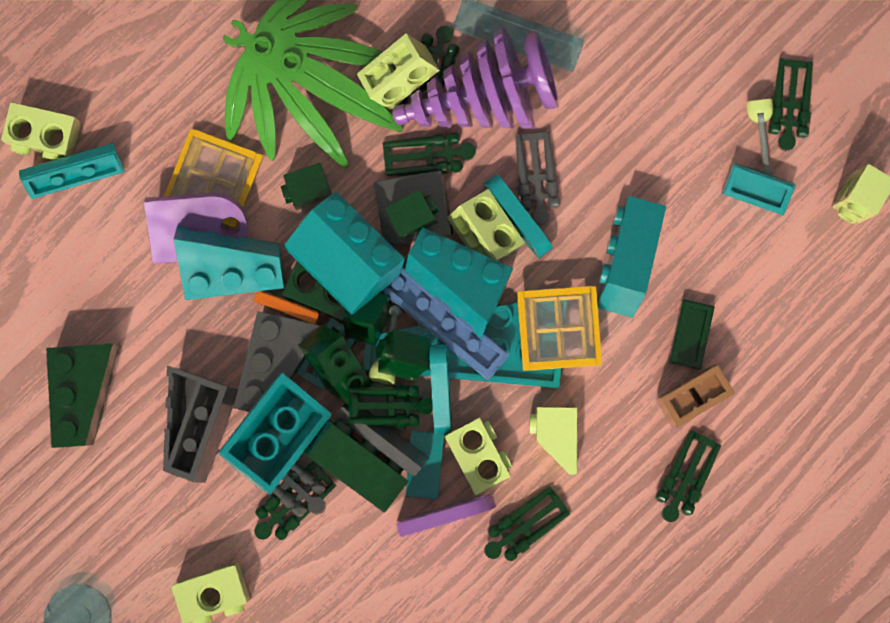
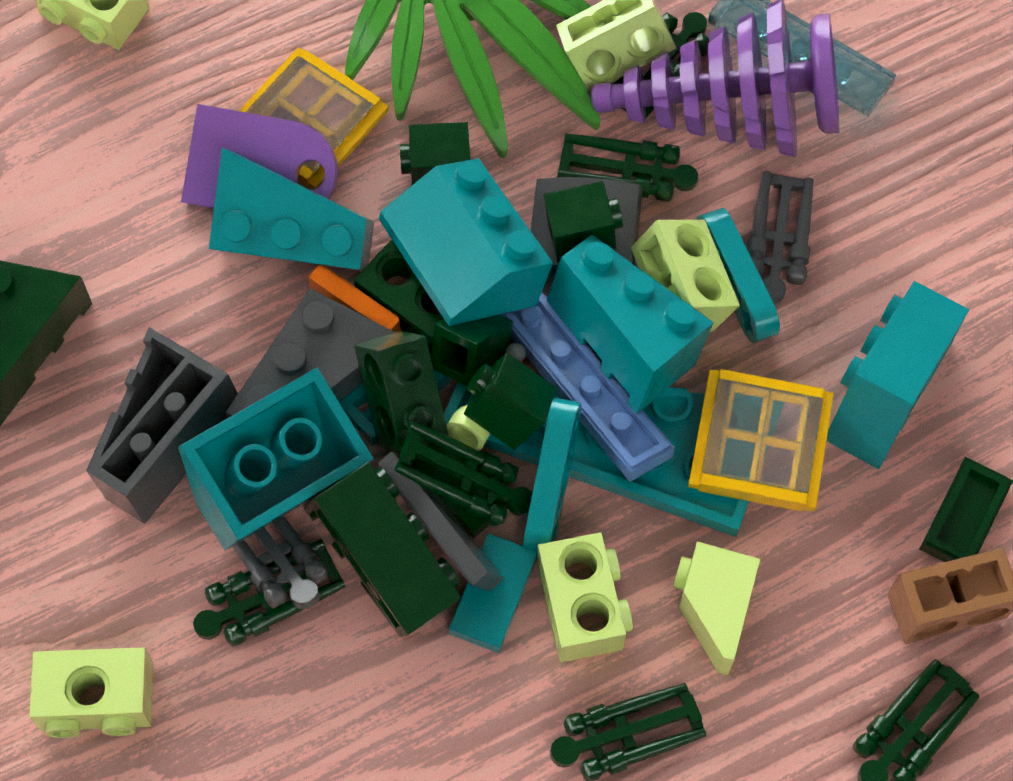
camera: 20 degrees right, 20 degrees down
(71, 171) = (112, 54): teal tile -> none
(445, 514) = (503, 663): medium lavender tile -> none

